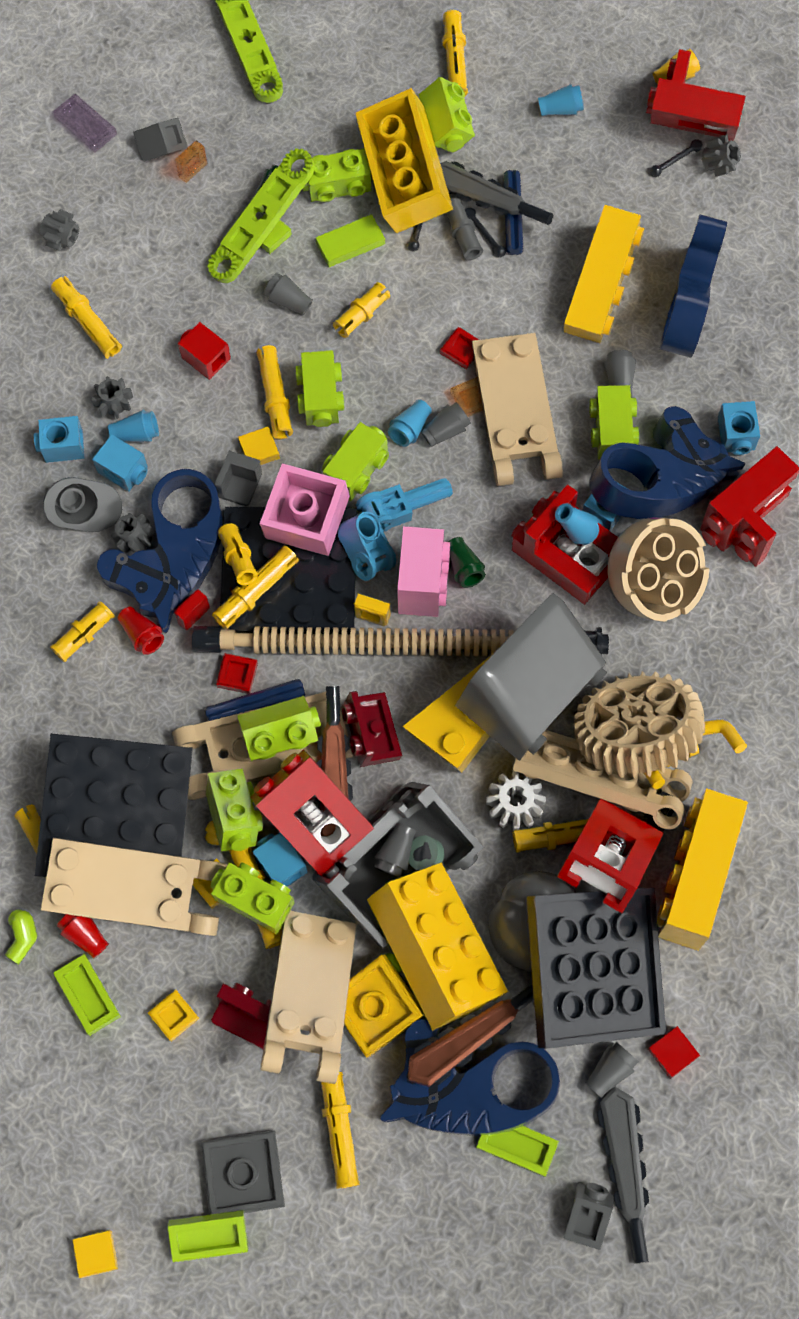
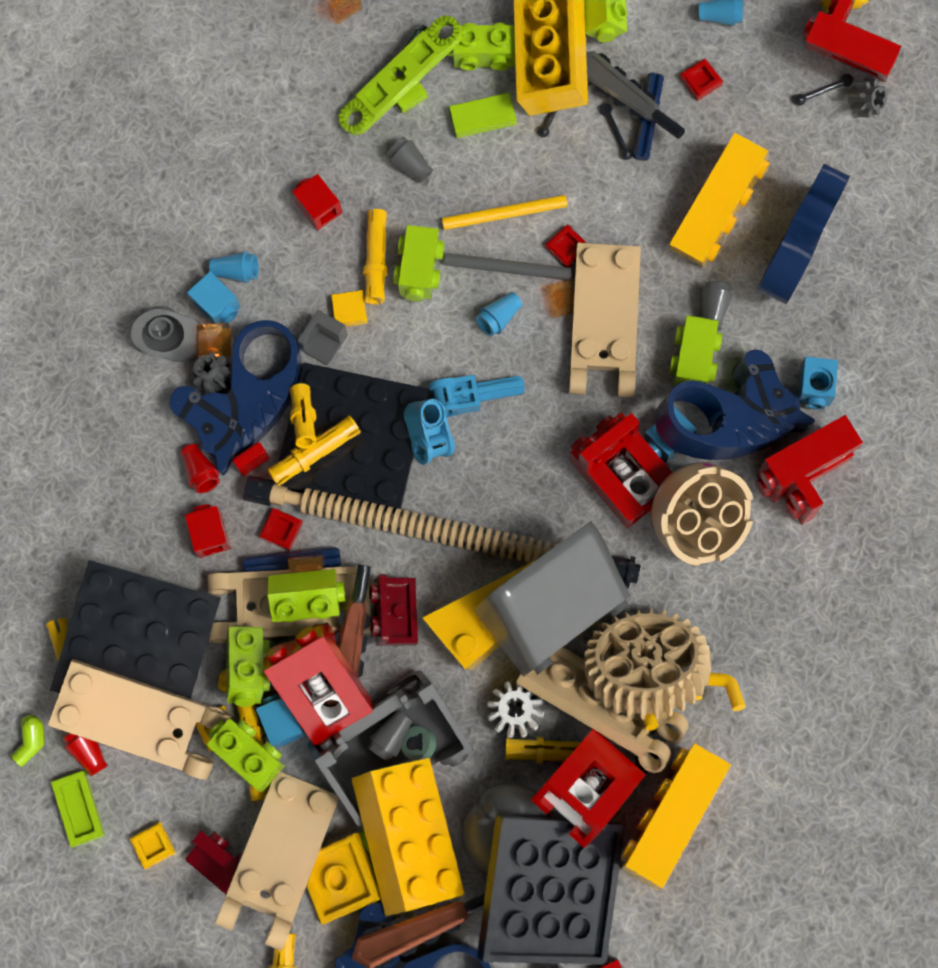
camera: 15 degrees right, 5 degrees up
(59, 230) = (204, 52): dark grey gear -> none
(69, 449) = (171, 274): dark azure brick -> none
(79, 308) = (207, 135): yellow pin -> none
(82, 631) = (144, 459): yellow pin -> none
(115, 405) = (227, 234): dark grey gear -> none
(129, 499) = (214, 339): none -> clear orange tile
(163, 688) = (207, 530): none -> red brick
(272, 697) = (306, 563): none -> clear orange tile
(305, 509) = (376, 385): bright pink brick -> none
(358, 457) = (437, 342): lime brick -> none
(361, 310) = (477, 189): yellow pin -> none
(372, 610) = (421, 494): yellow tile -> none
(392, 327) = (504, 212): none -> yellow bar
(408, 377) = (507, 266): none -> dark grey bar
(423, 571) = (474, 466): bright pink brick -> none
(446, 424) = (533, 322): dark grey cone -> none
(464, 230) = (595, 126): dark grey pin -> none
(466, 566) = (520, 466): dark green cone -> none
(556, 169) = (701, 79): none -> red tile
(578, 524) = (634, 454): dark azure cone -> none

